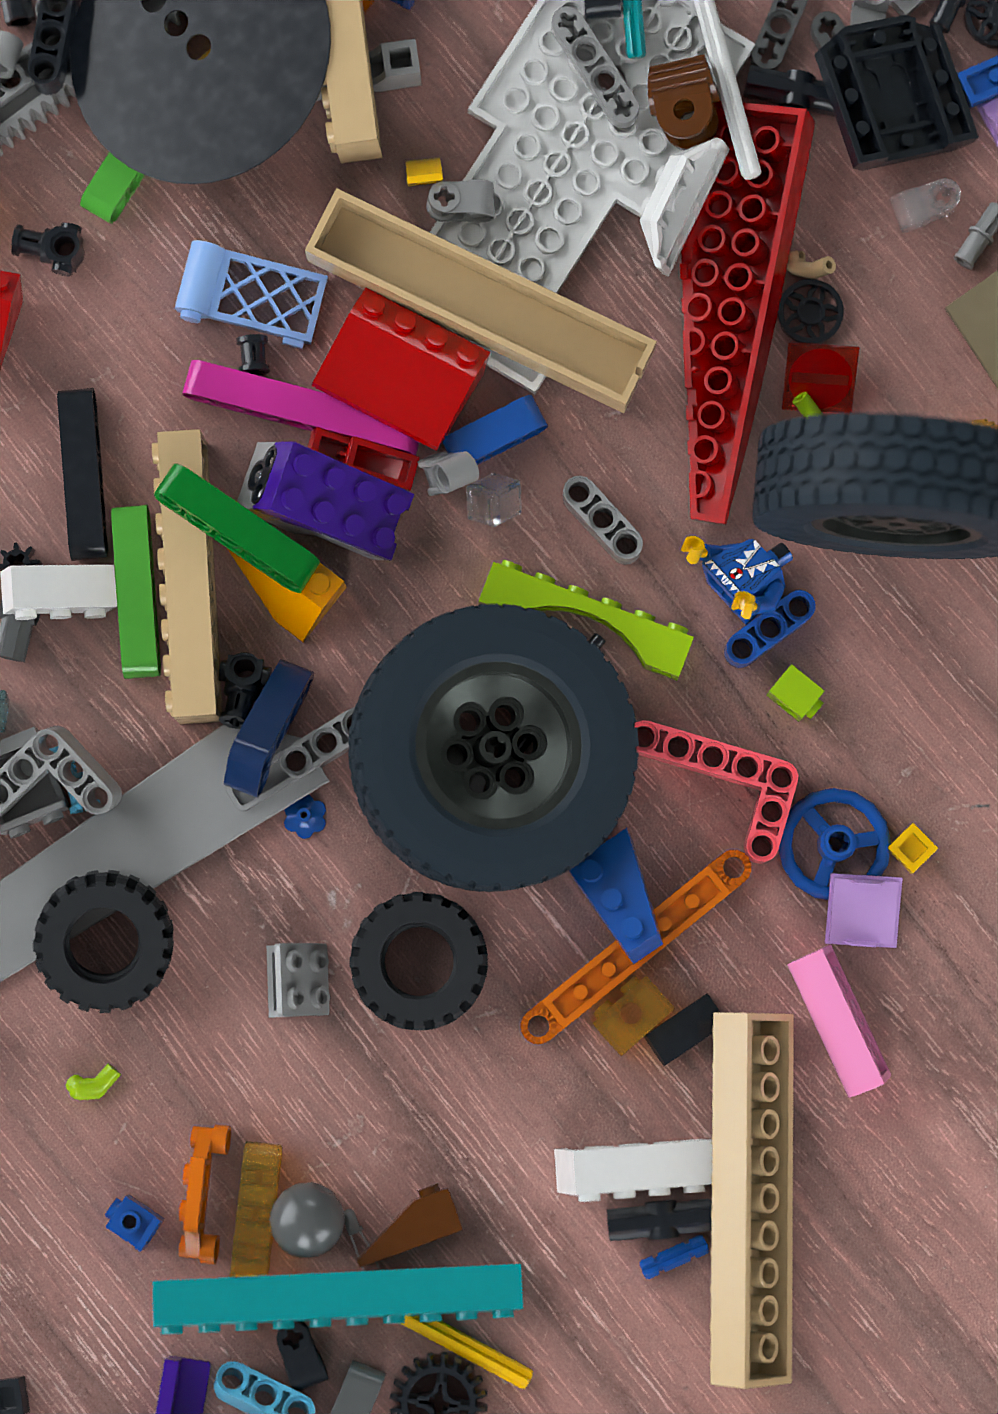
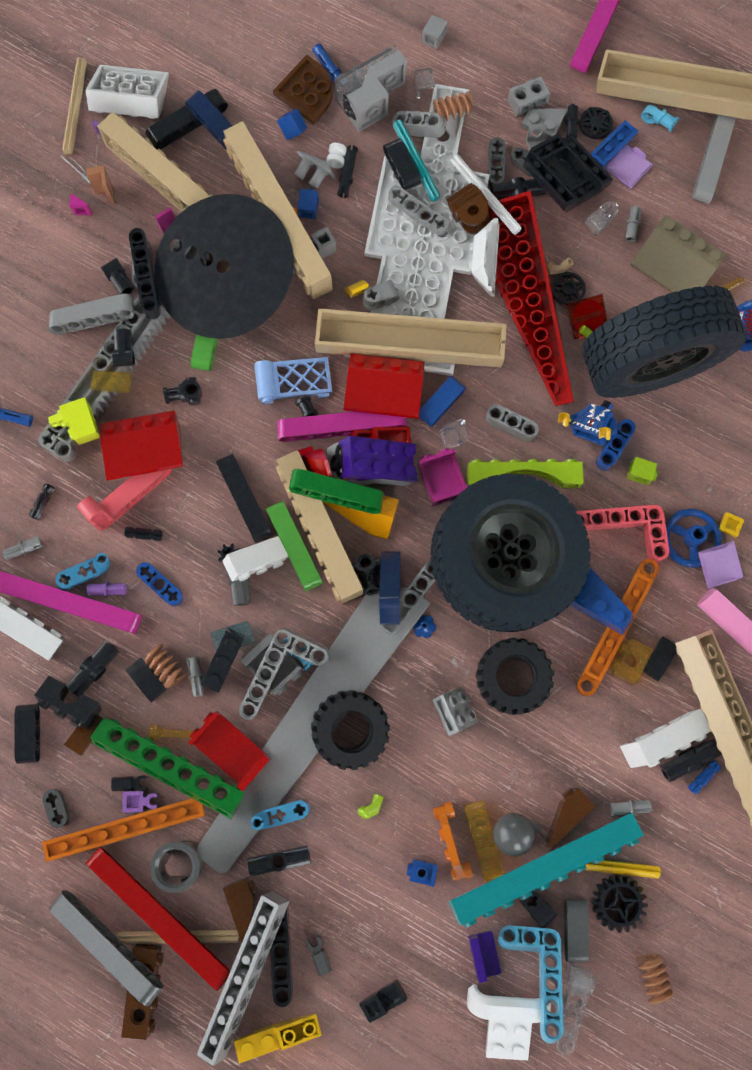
camera: 25 degrees left, 5 degrees down
(226, 460) = (315, 461): none -> red slope
(441, 567) = (442, 476): none -> dark pink panel
(449, 471) = (428, 426): light grey piece -> none
(526, 1256) = (630, 807): none -> light grey axle

